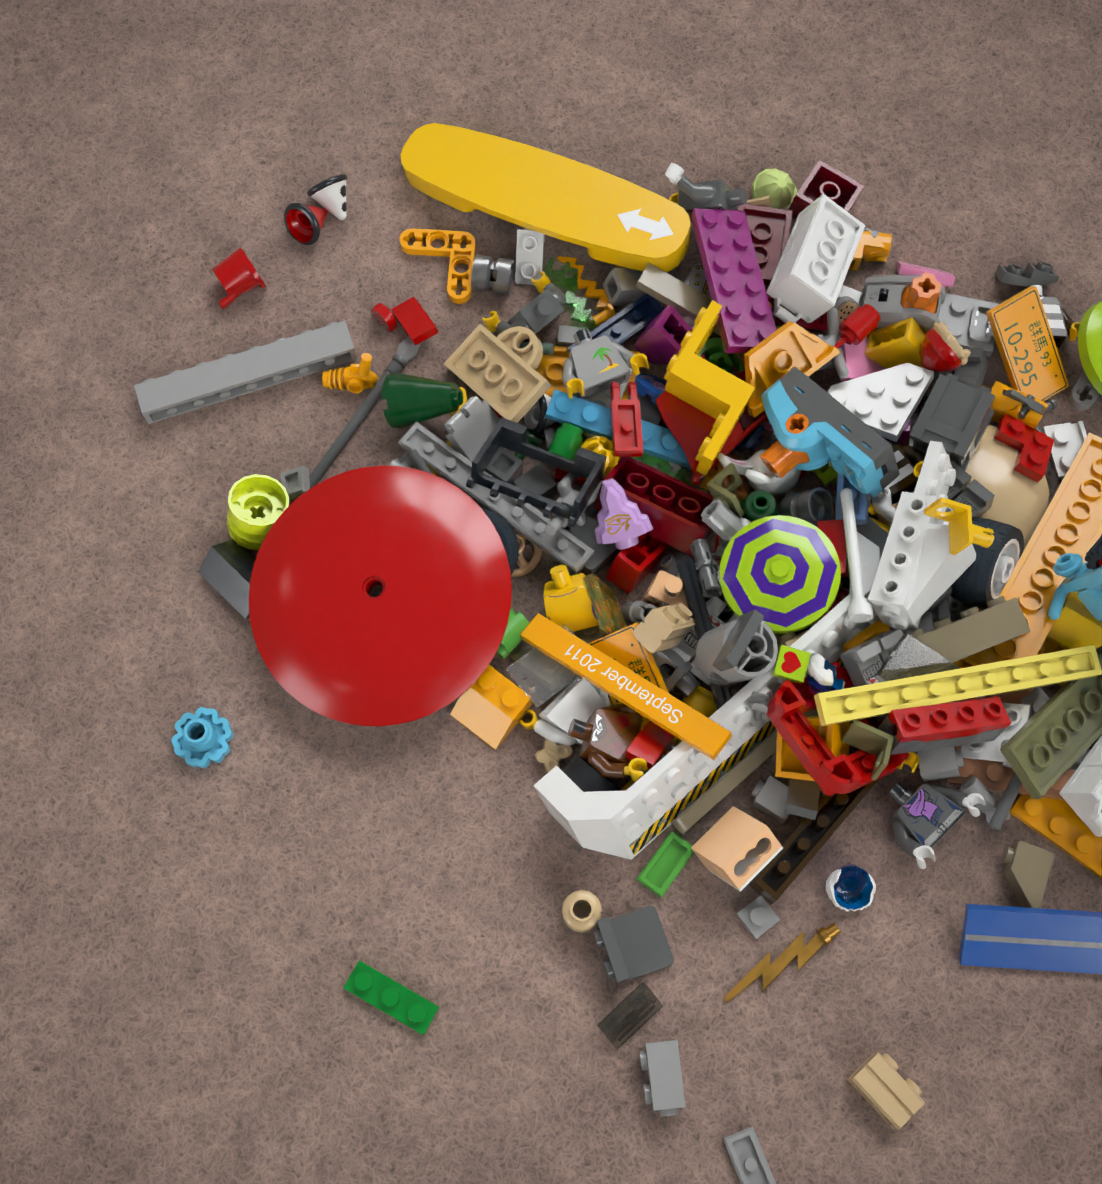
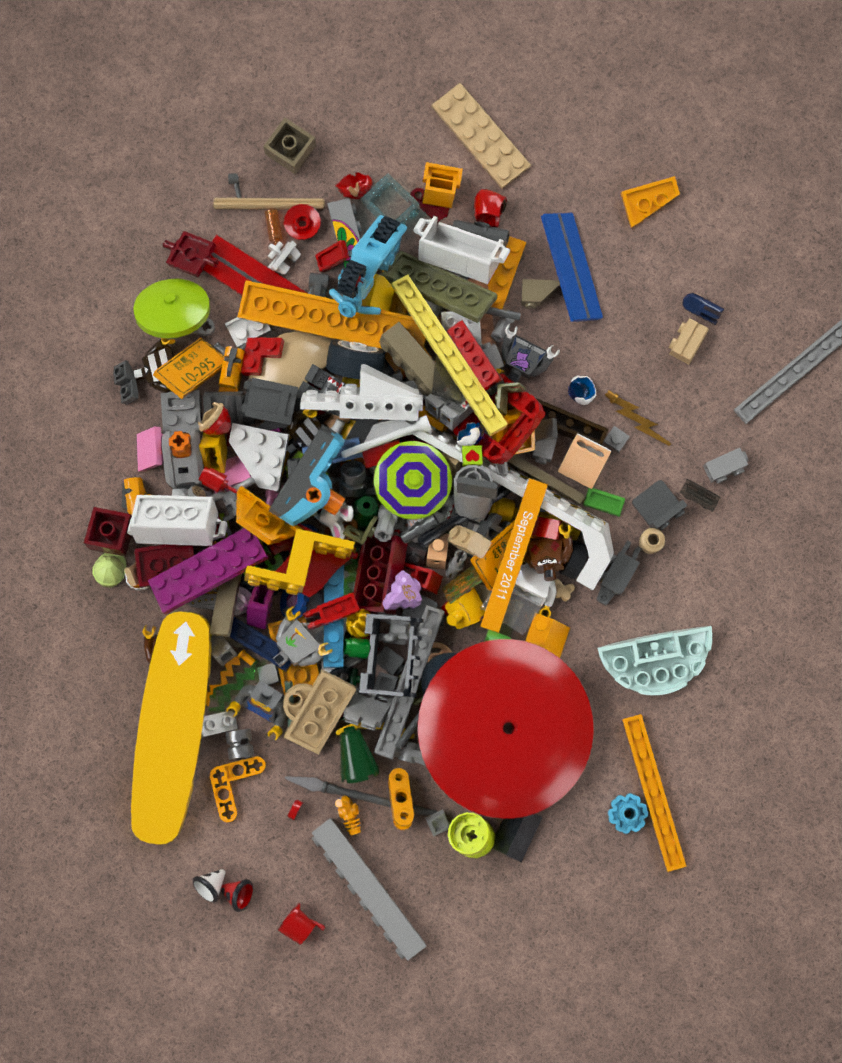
camera: 110 degrees left, 10 degrees up
(216, 785) = (654, 793): none -> light orange plate
(327, 443) = (403, 789): none -> light orange piece
(391, 997) = (738, 637): green plate -> none
(400, 856) = (658, 661): none -> light aqua brick
(414, 321) = (292, 786): red tile -> none
(547, 843) = (618, 575): none -> dark grey hinge
(704, 194) = (145, 608): dark grey torso -> none
(937, 1135) = (702, 307): none -> dark blue arm
(961, 530) = (364, 372): yellow bracket -> none

